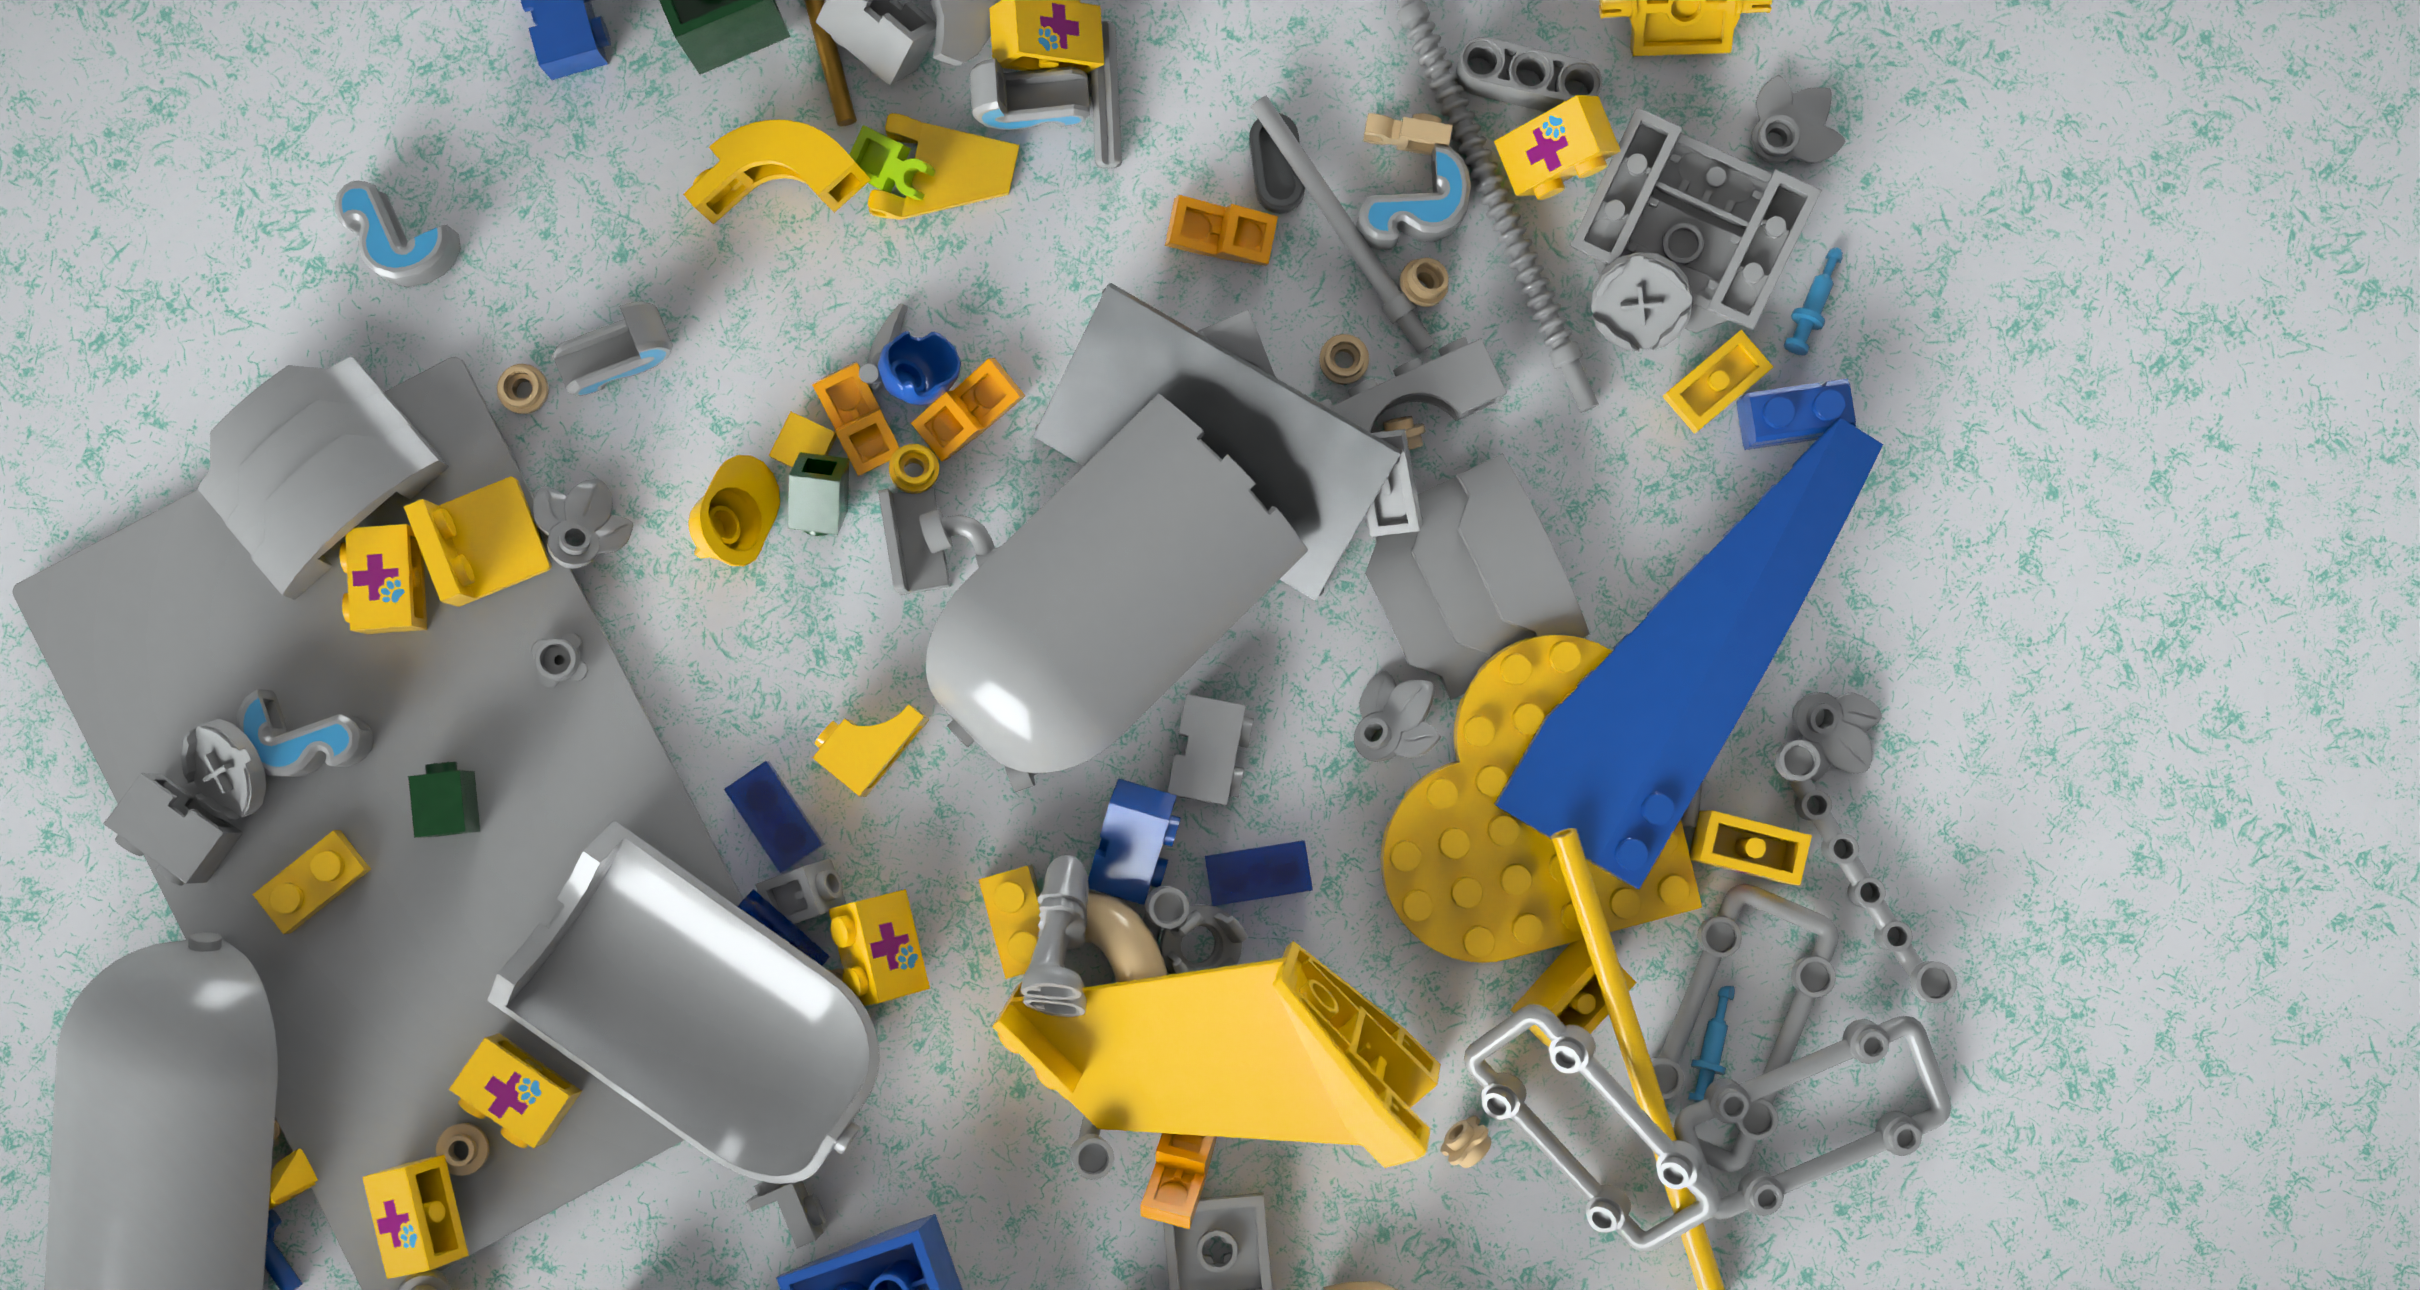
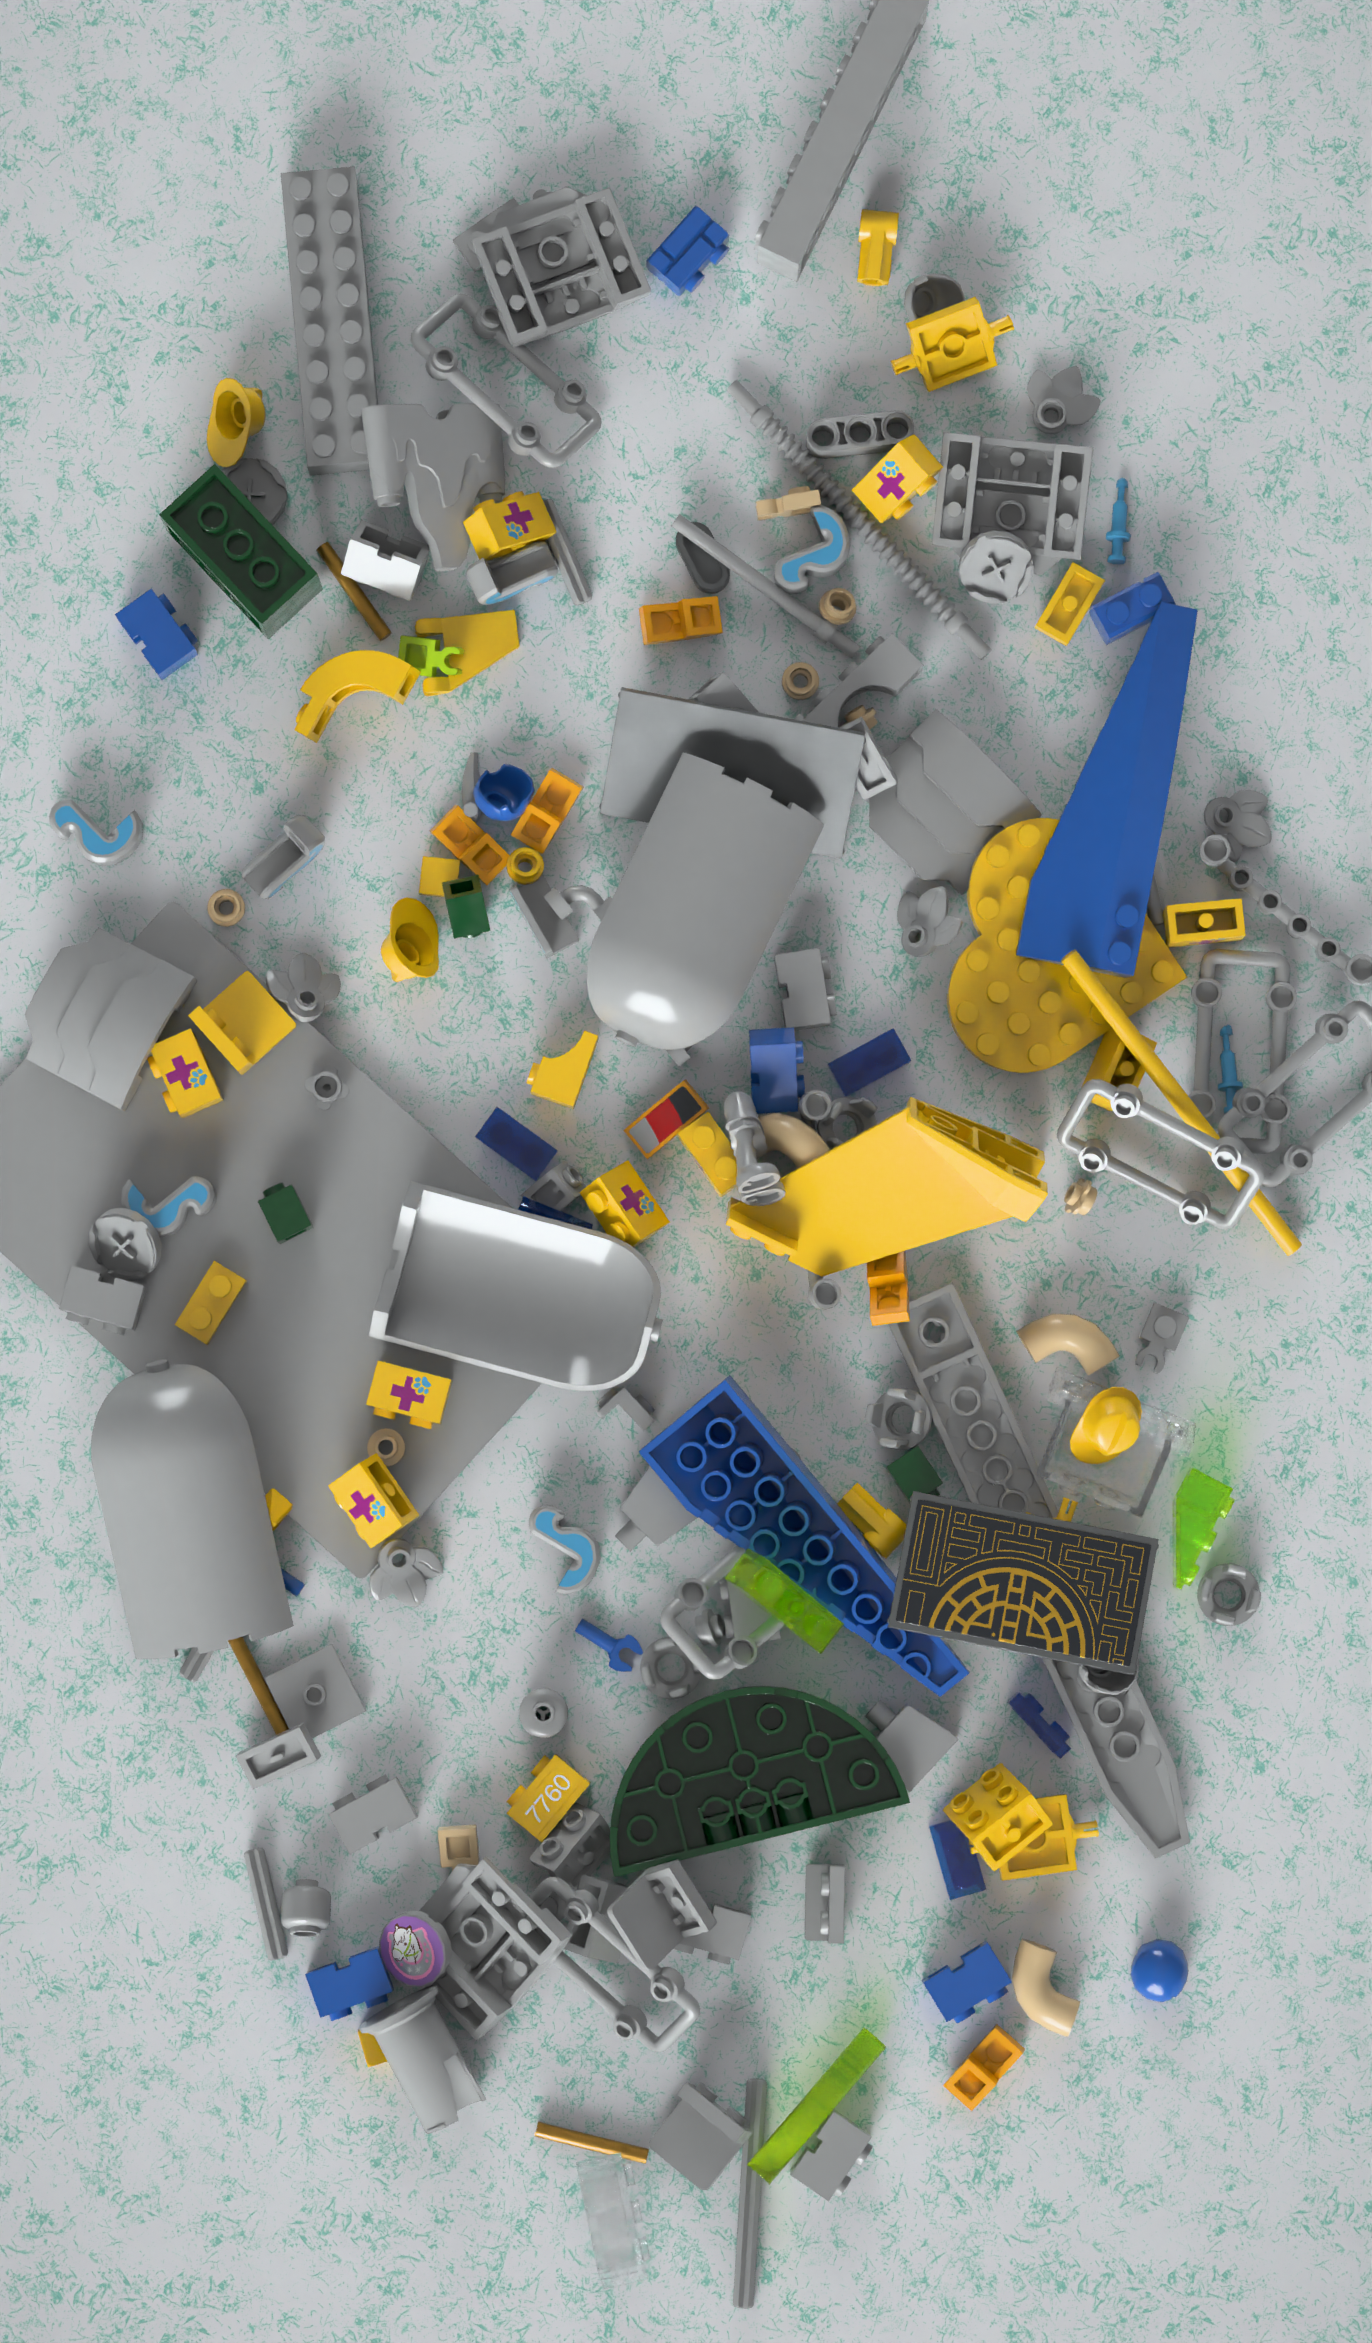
camera: 20 degrees left, 0 degrees up
(975, 852) = (666, 1119): none -> slope

